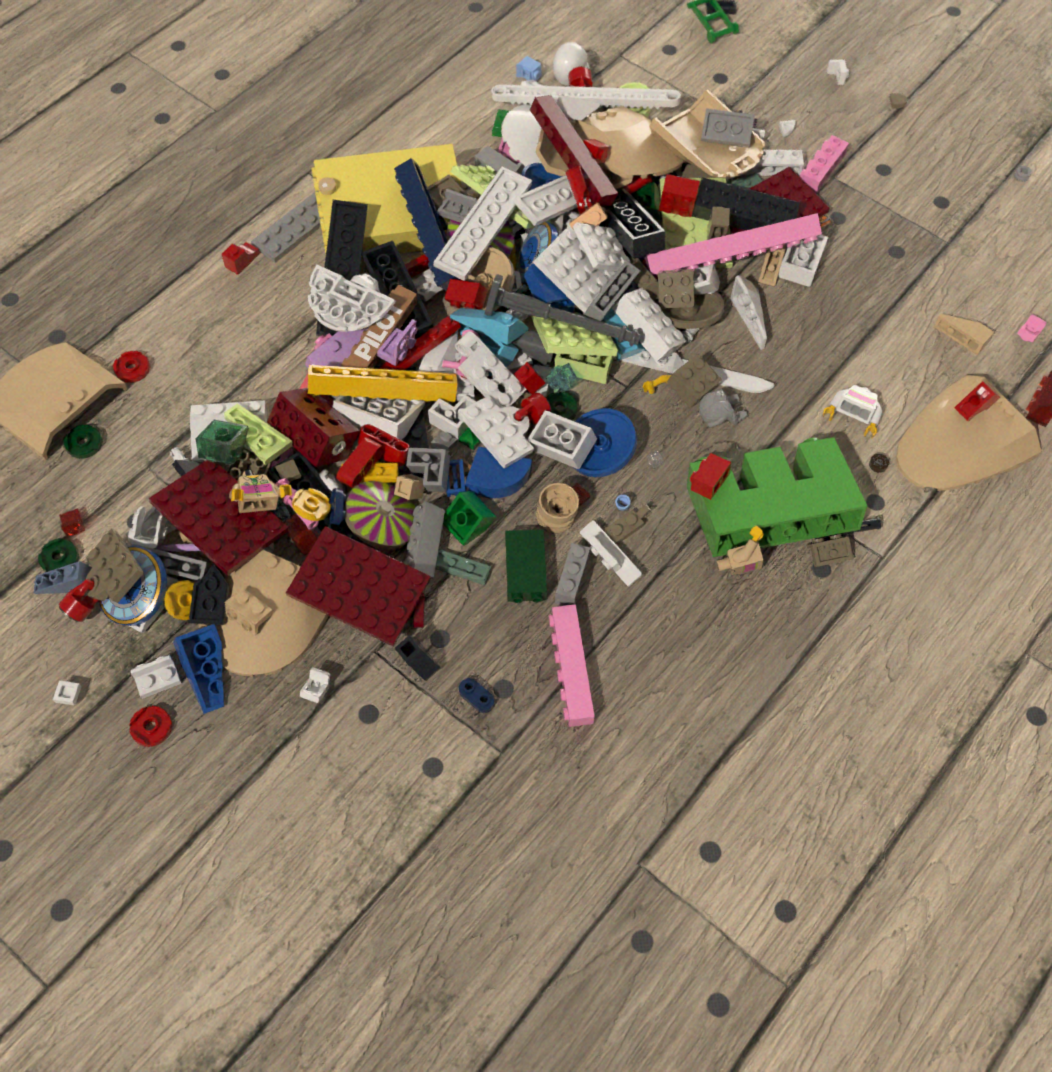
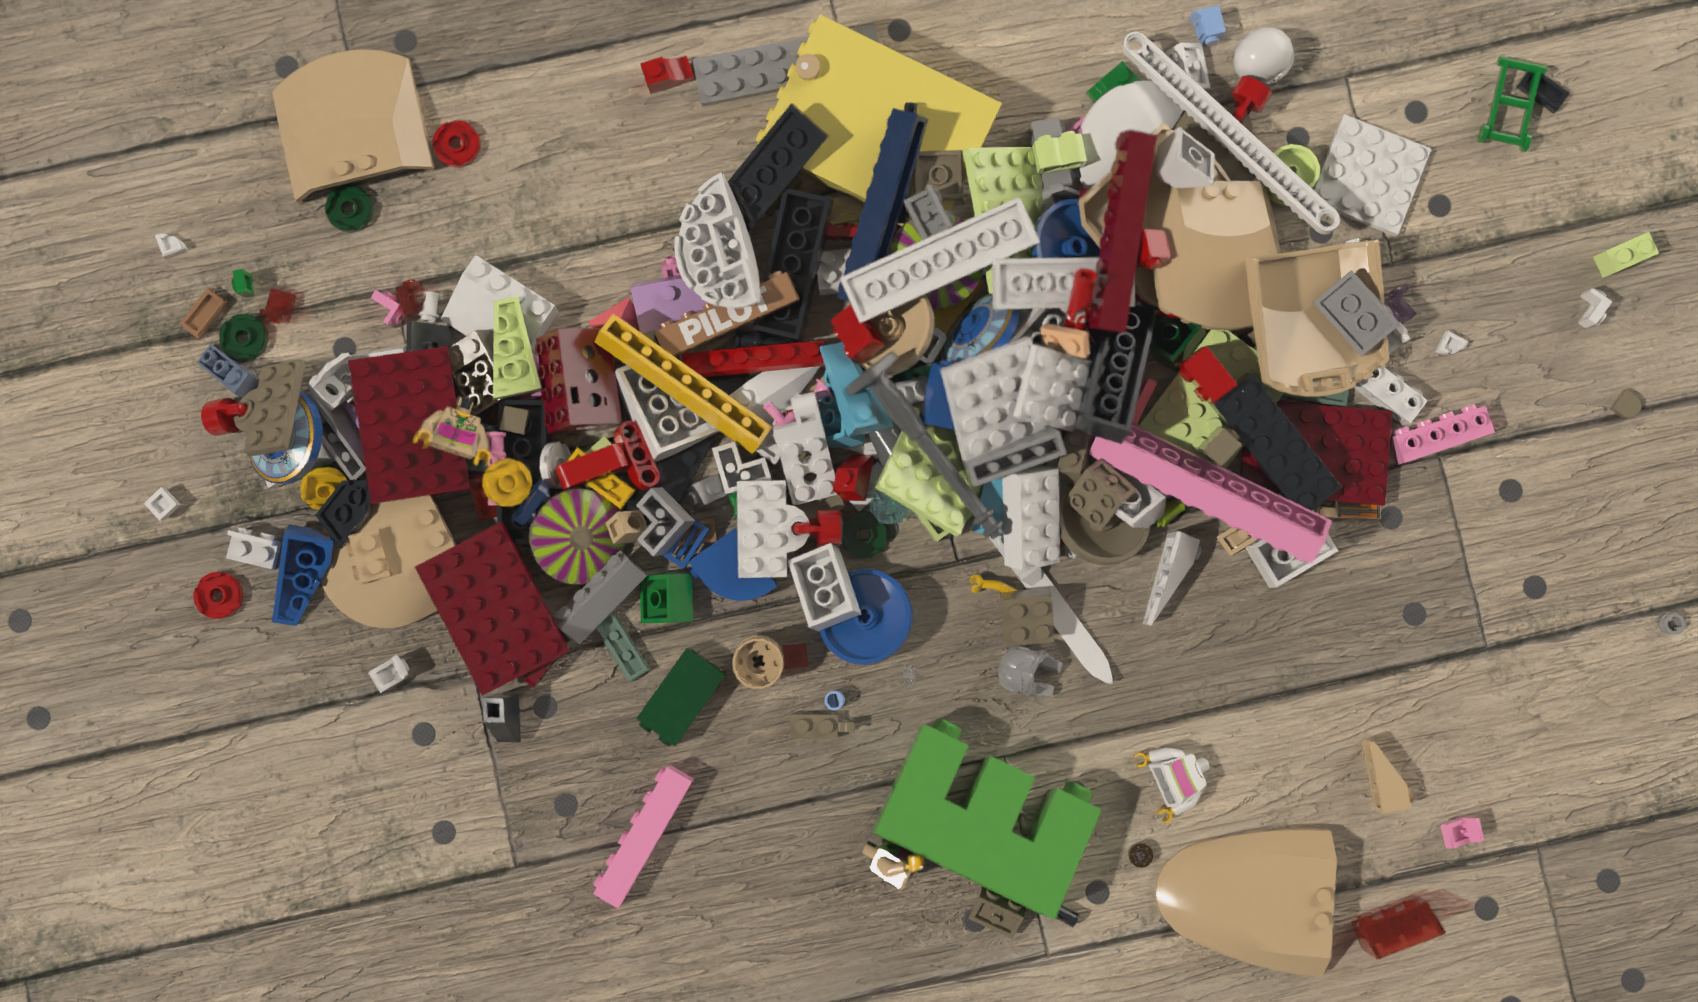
camera: 40 degrees right, 25 degrees up
(19, 560) = (204, 313): none -> medium nougat tile
(36, 523) = (242, 283): none -> green plate
(151, 472) = (388, 300): none -> bright pink bracket
(161, 461) = (408, 301): none -> clear red bracket
(222, 441) = (465, 341): clear green slope -> none
(366, 281) = (756, 240): white piece -> none
(398, 343) = (731, 346): lavender bracket -> none
(475, 695) = (534, 794): dark blue plate -> none
(503, 155) = (1059, 152): none -> yellowish green brick
(572, 575) = (717, 744): light grey brick -> none
(611, 554) = (773, 746): white bracket -> none
(674, 75) = (1371, 174): none -> white plate
(710, 475) = (925, 763): red brick -> none
(723, 284) = (1172, 509): none -> lime cone
(830, 41) = (1626, 254): none -> yellowish green brick
(977, 400) = (1293, 888): red arch -> none

